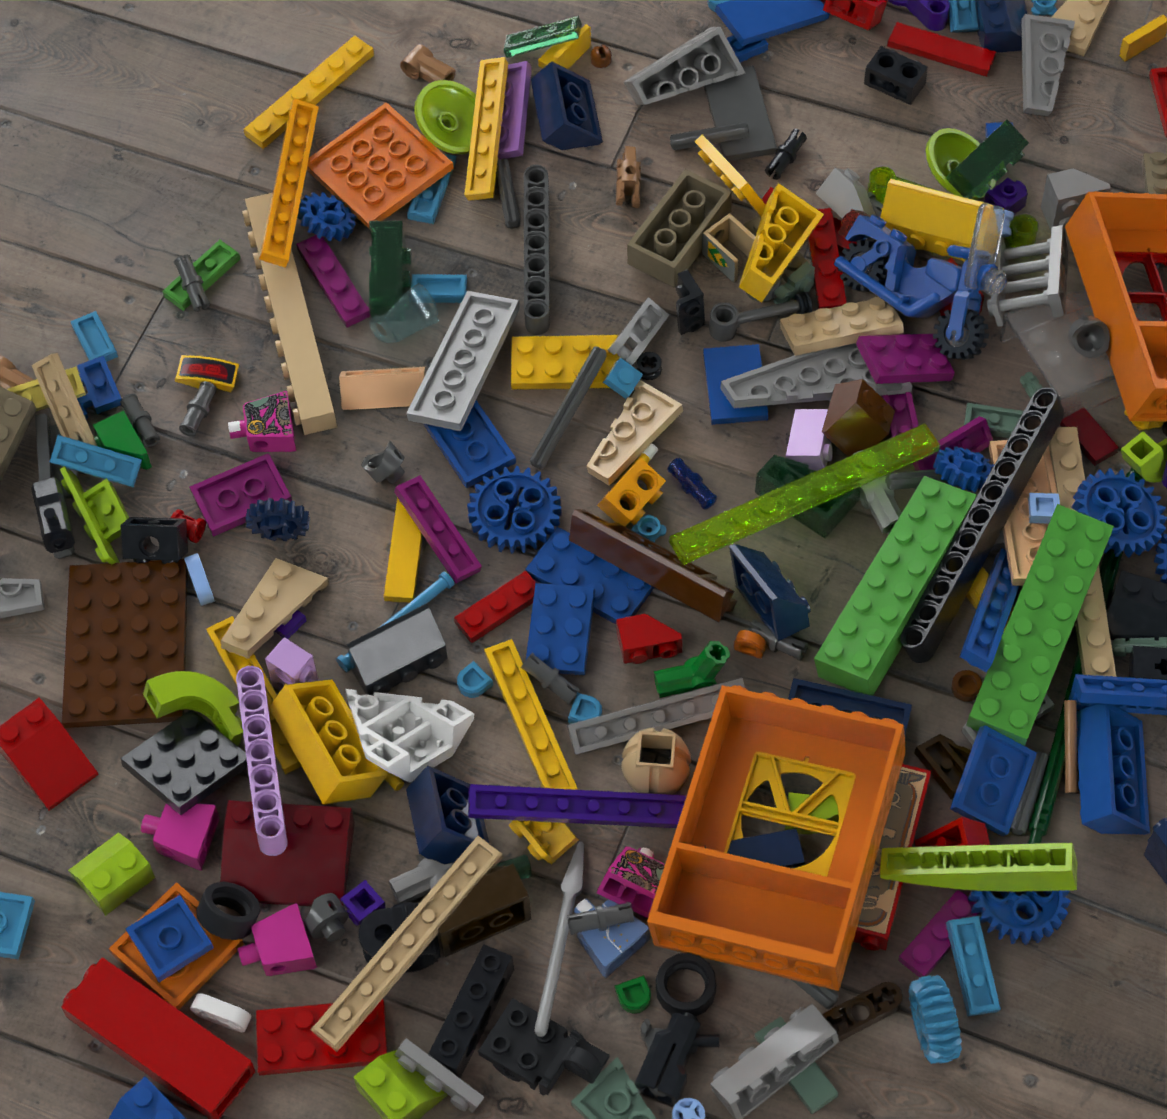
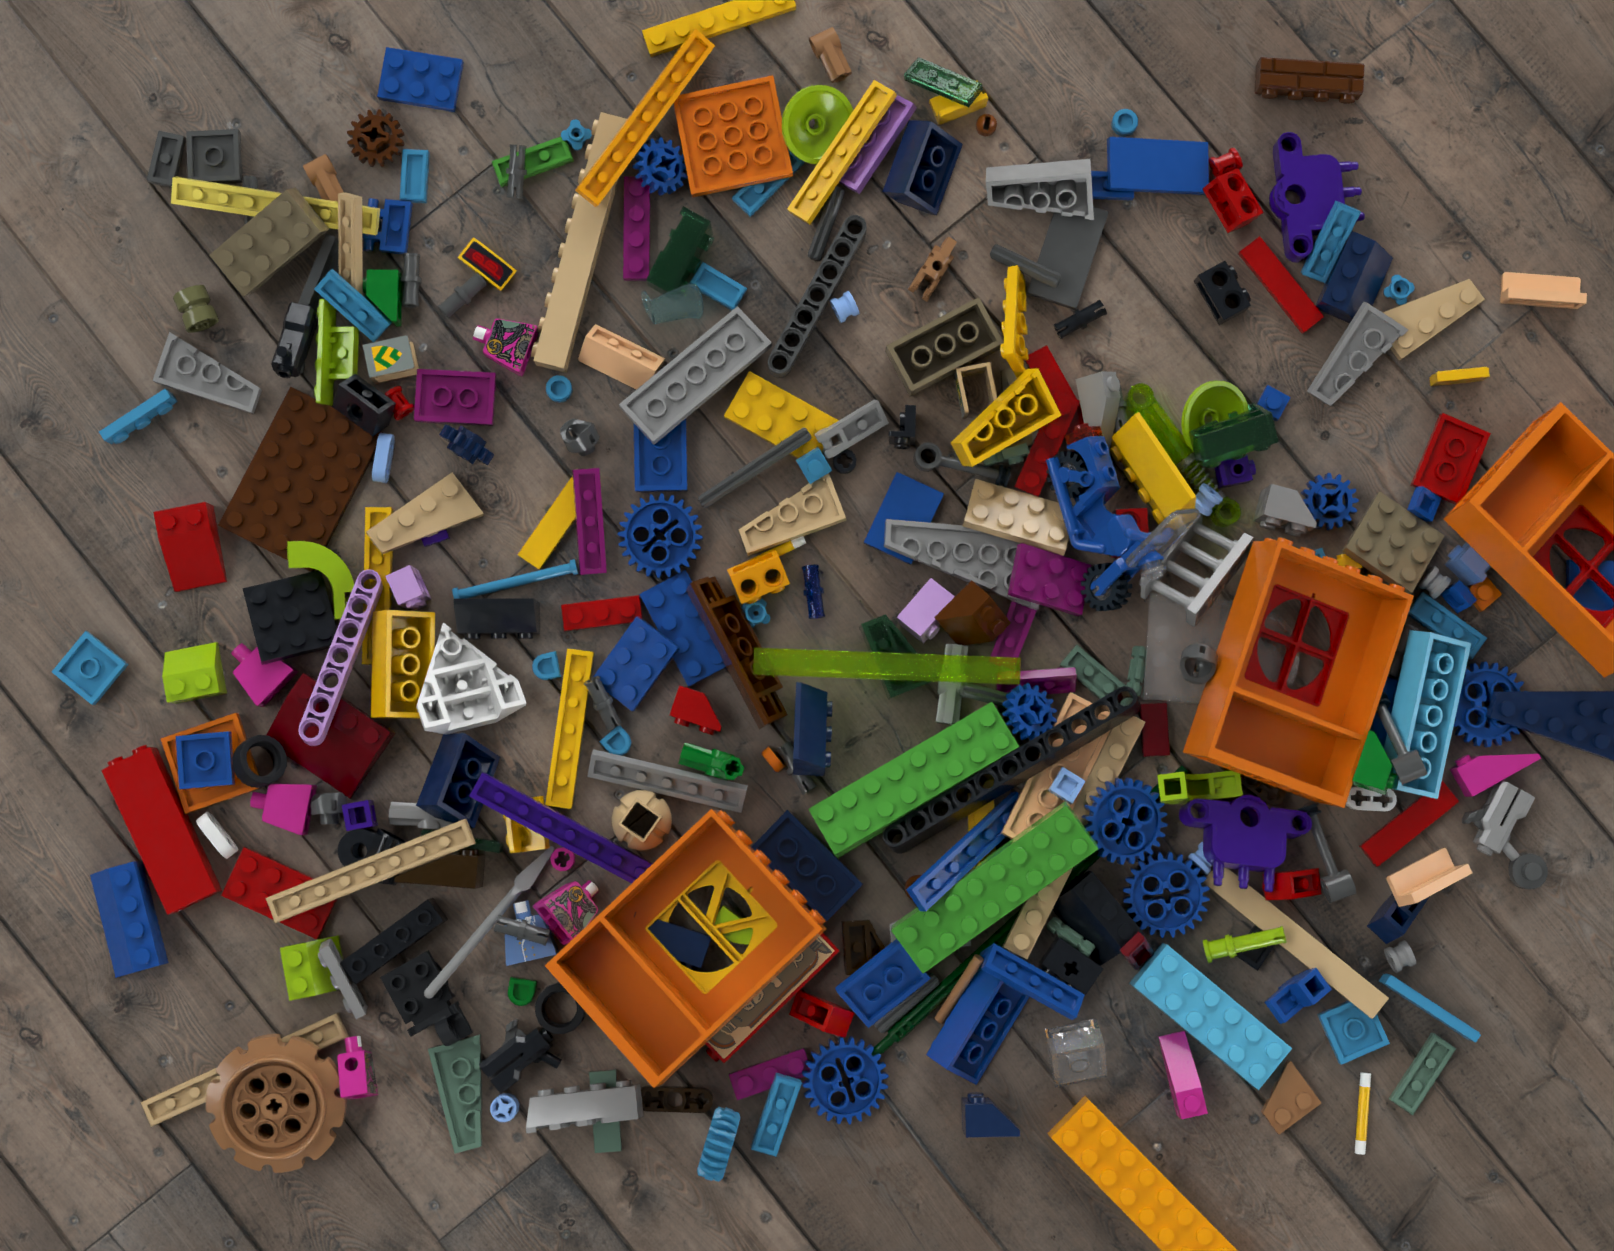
camera: 25 degrees right, 25 degrees up
(39, 323) = (376, 127): none -> reddish brown gear
(55, 262) = (420, 79): none -> blue plate
(159, 489) = (391, 359): none -> piece
(231, 234) = (576, 142): none -> dark azure plate
(338, 441) = (559, 389): none -> dark azure tile
(567, 244) = (844, 306): none -> light blue wheel
(598, 855) = (569, 863): none -> dark pink bush
(984, 867) = (820, 1054): lime slope -> none
(1116, 173) = (1336, 508): none -> blue gear

